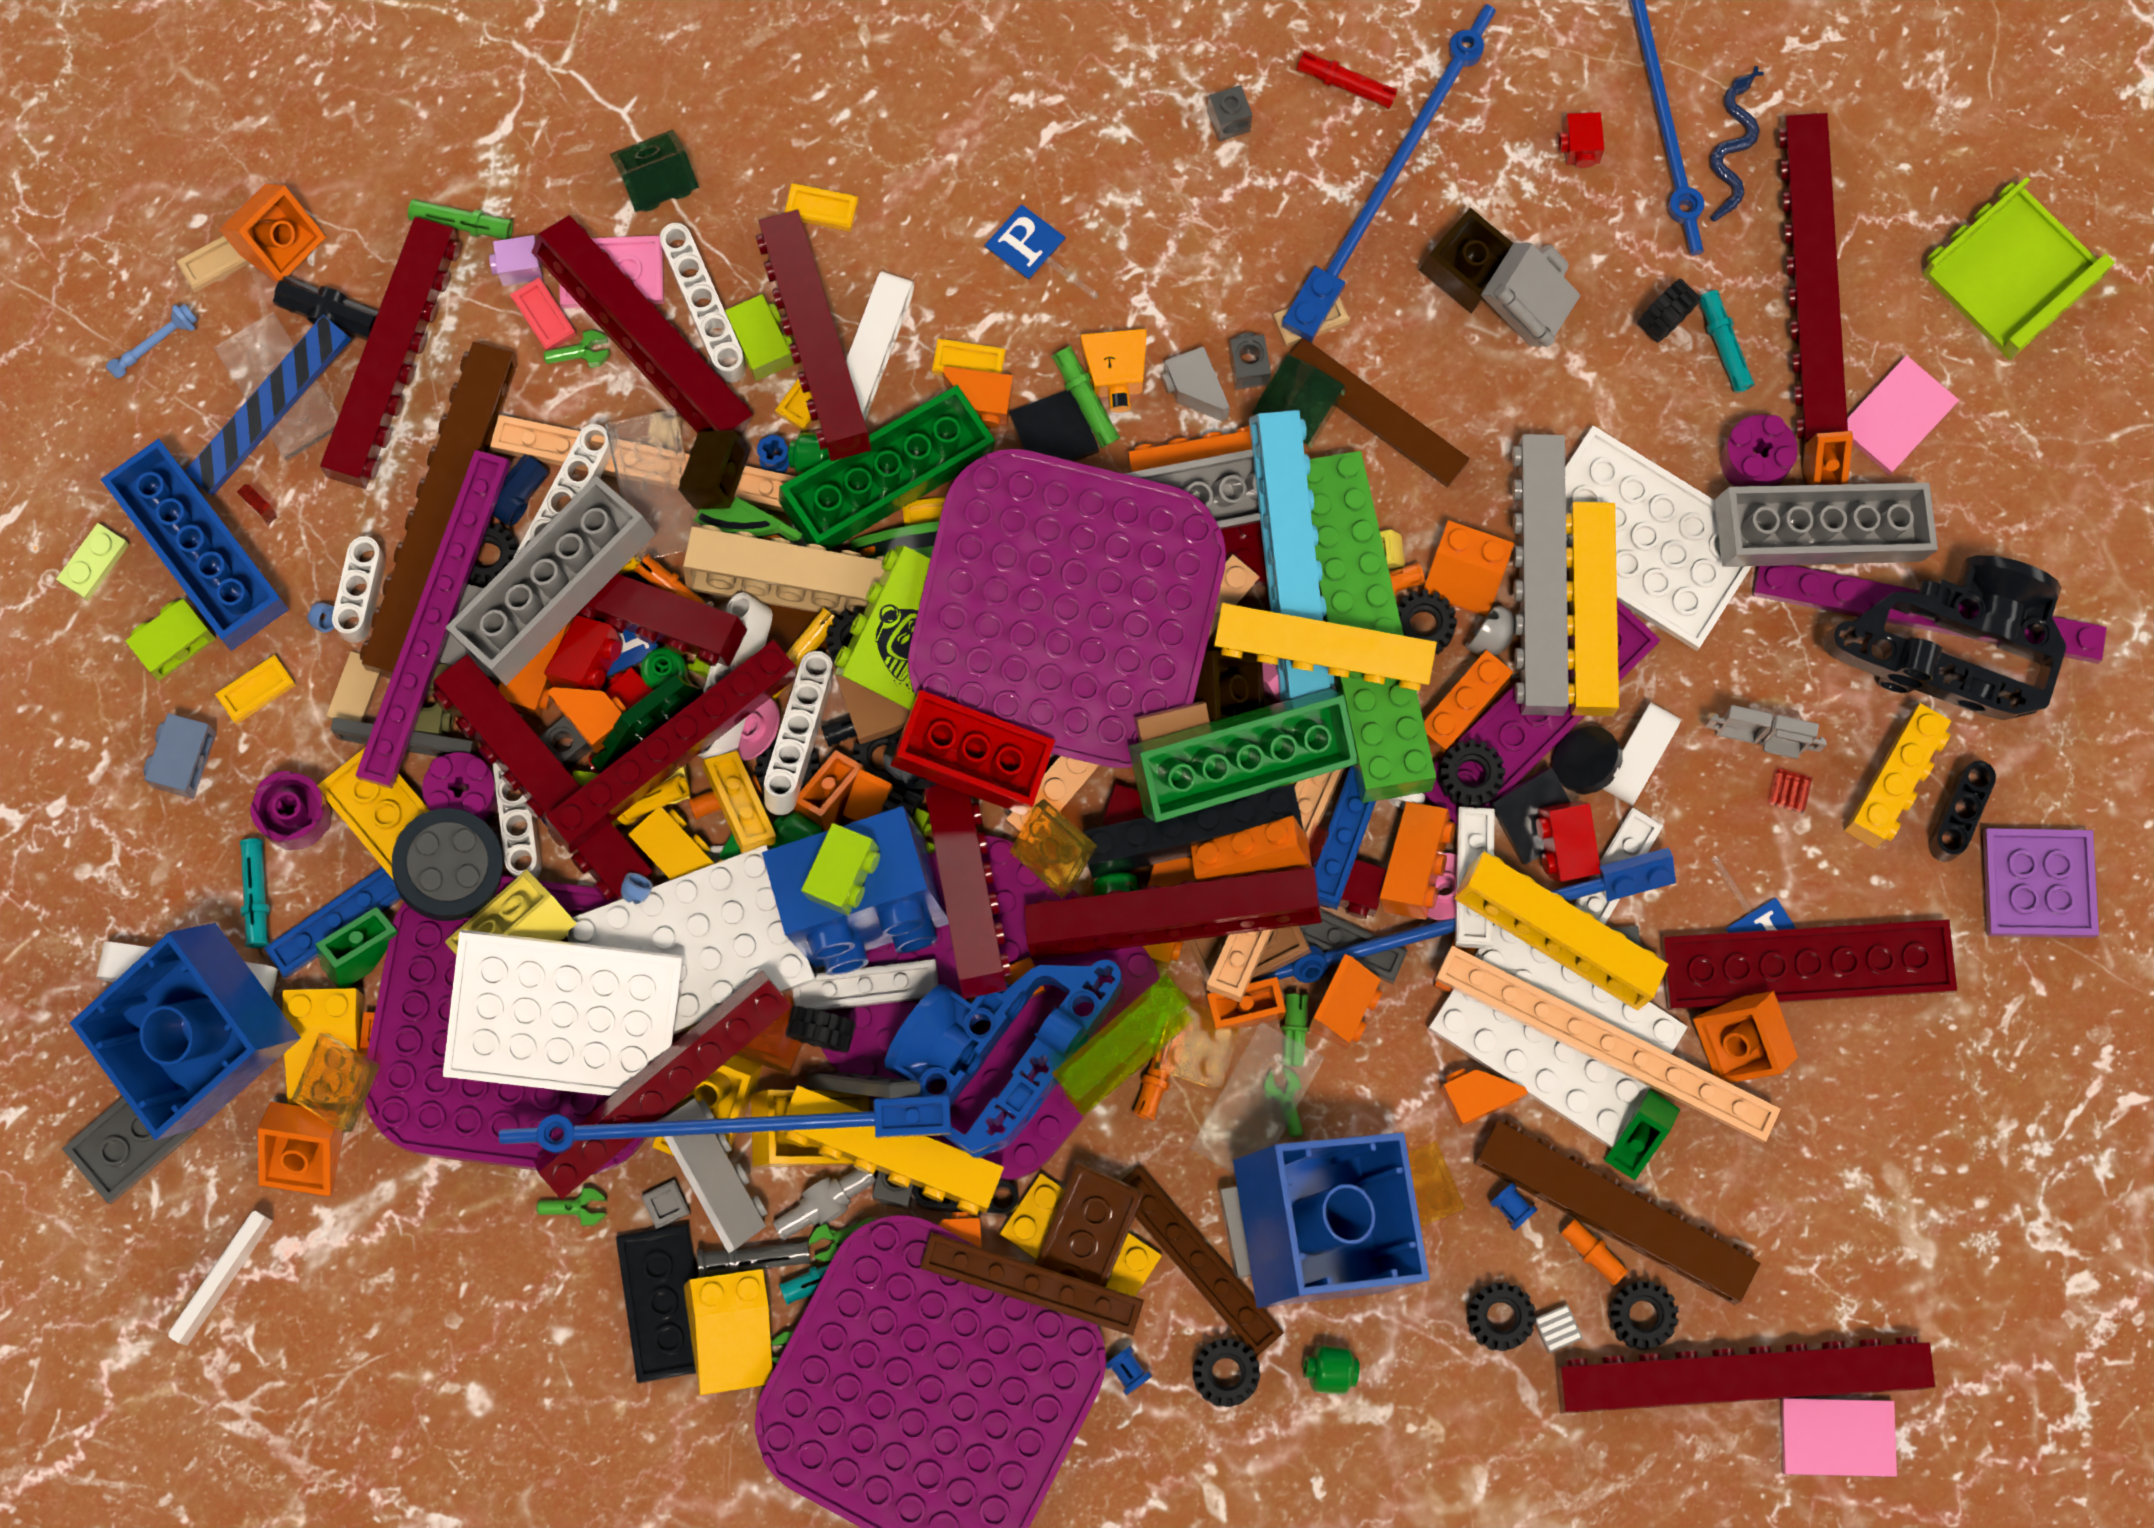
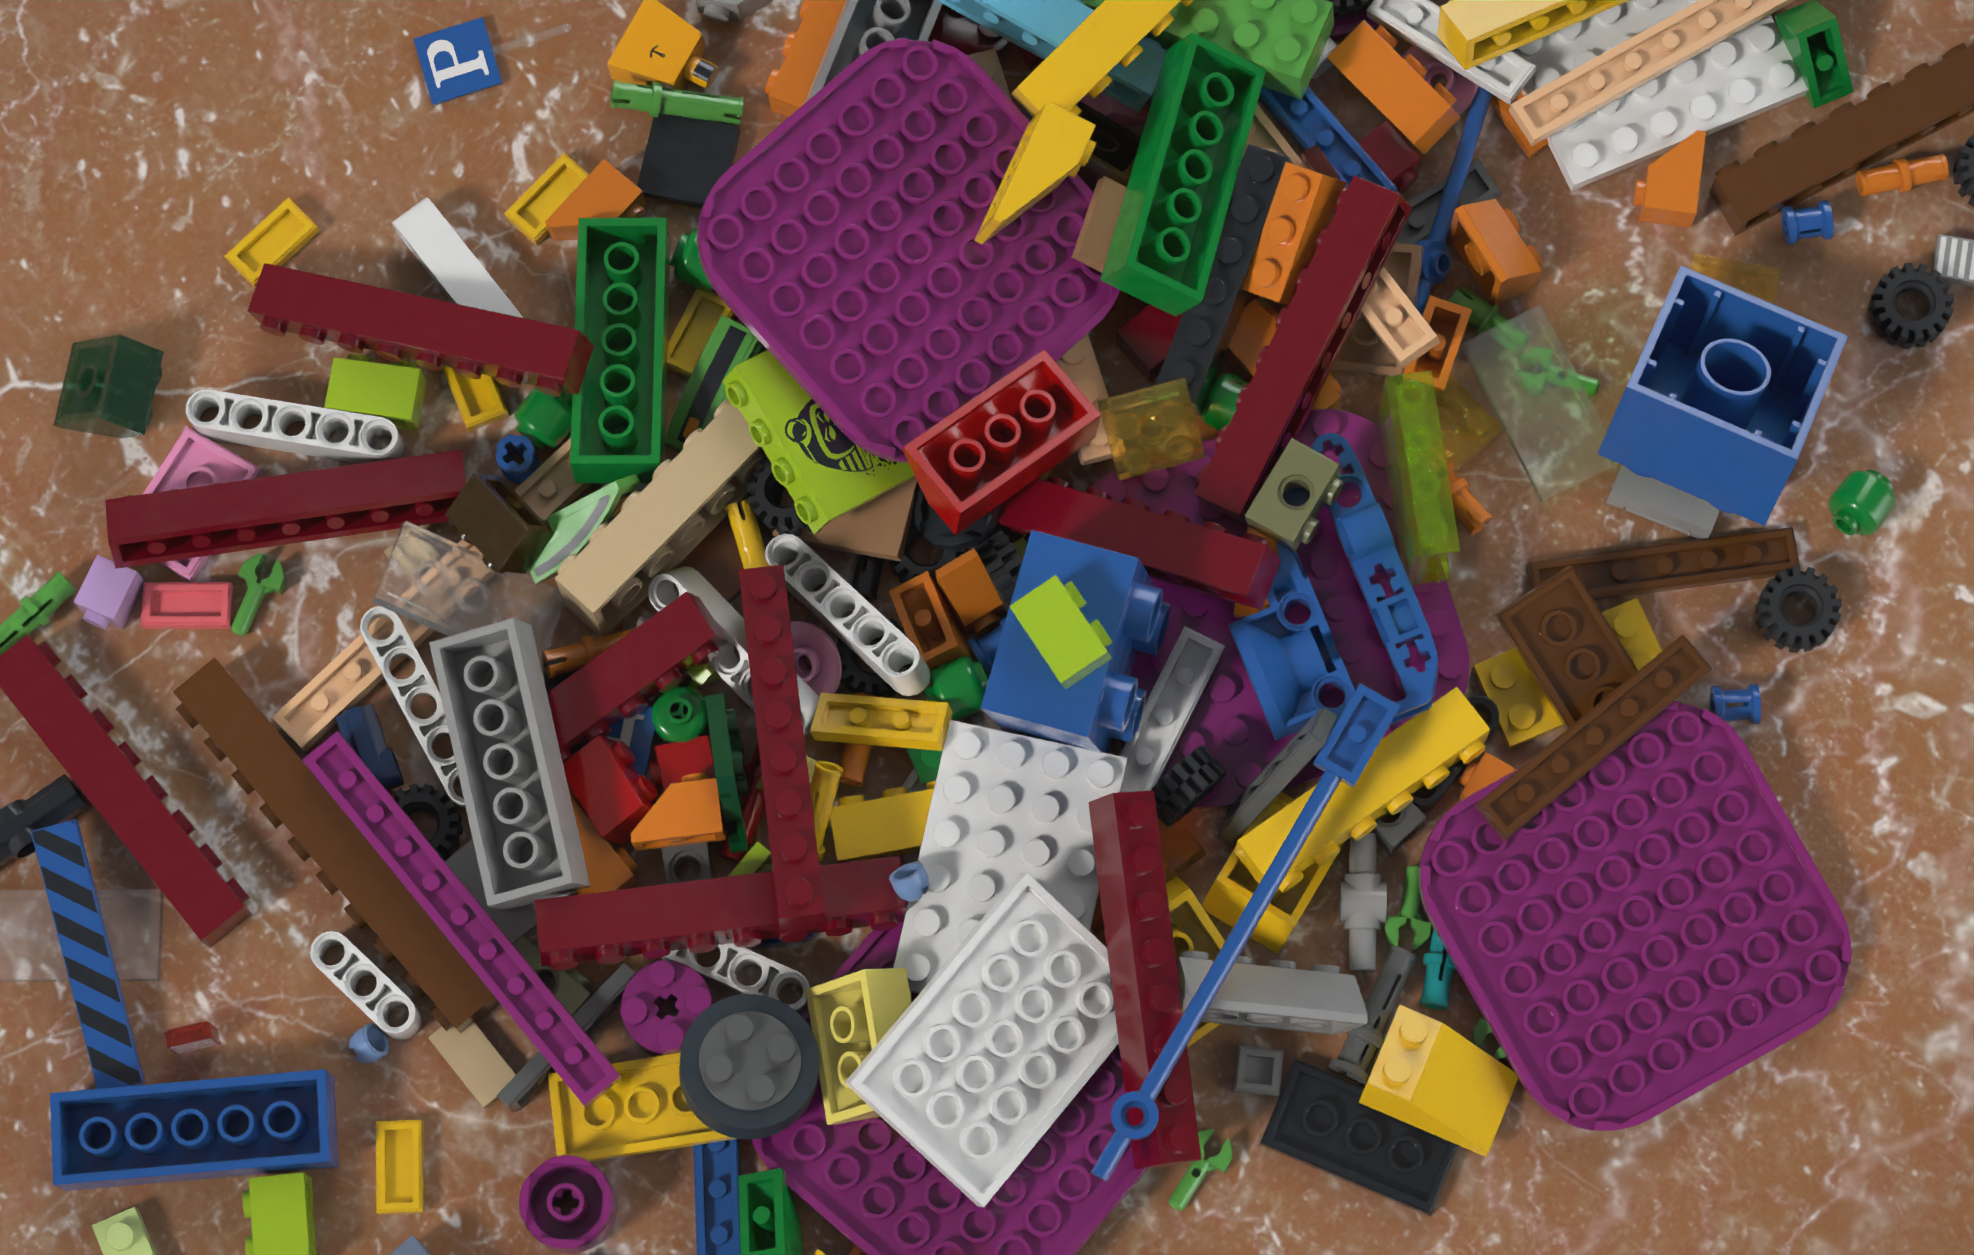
camera: 50 degrees left, 0 degrees up
(1035, 958) = (1301, 469): none -> olive brick
(1178, 653) = (1048, 152): none -> yellow slope

